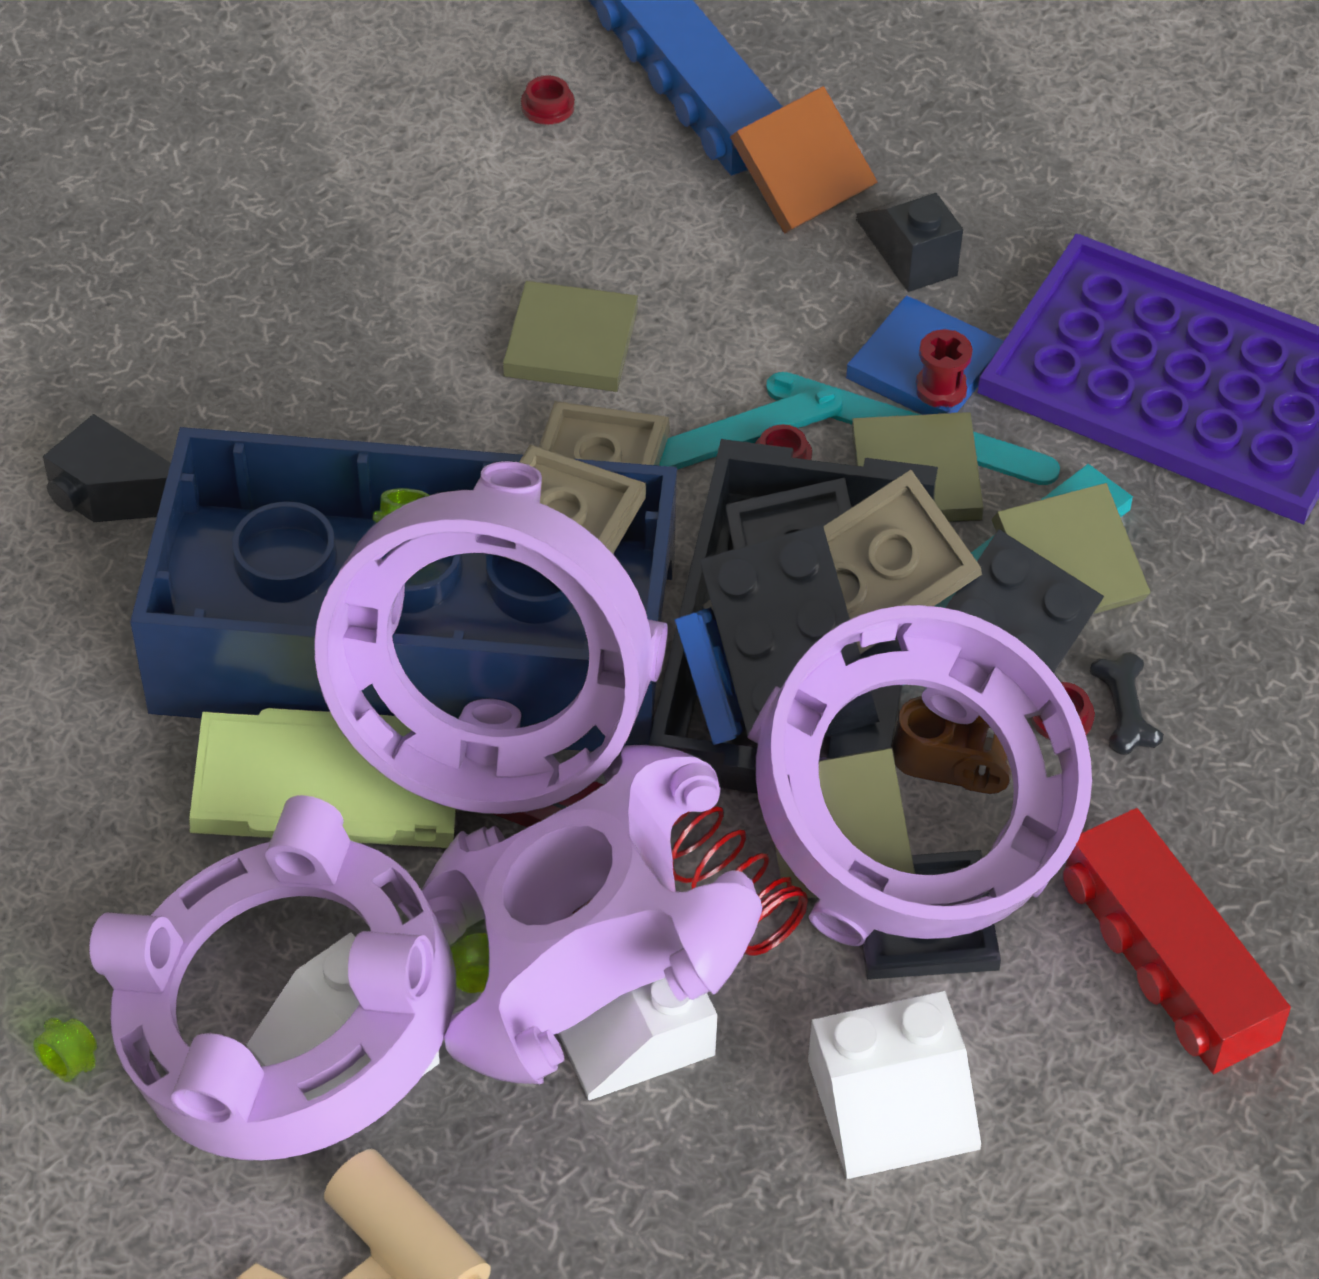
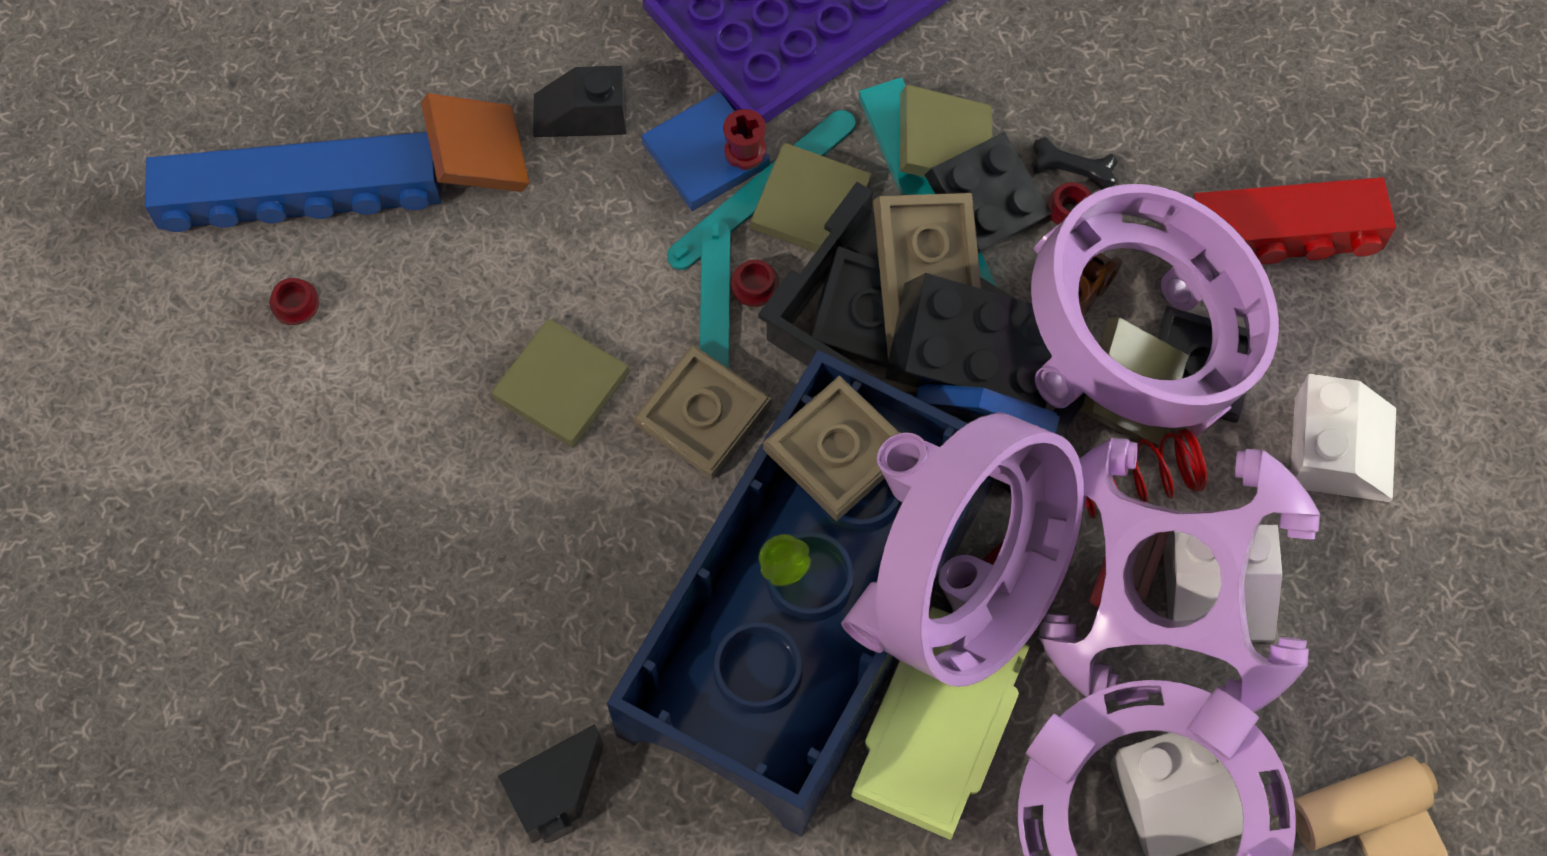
camera: 65 degrees left, 15 degrees up
(472, 963) = (1143, 666): clear neon green plate -> none

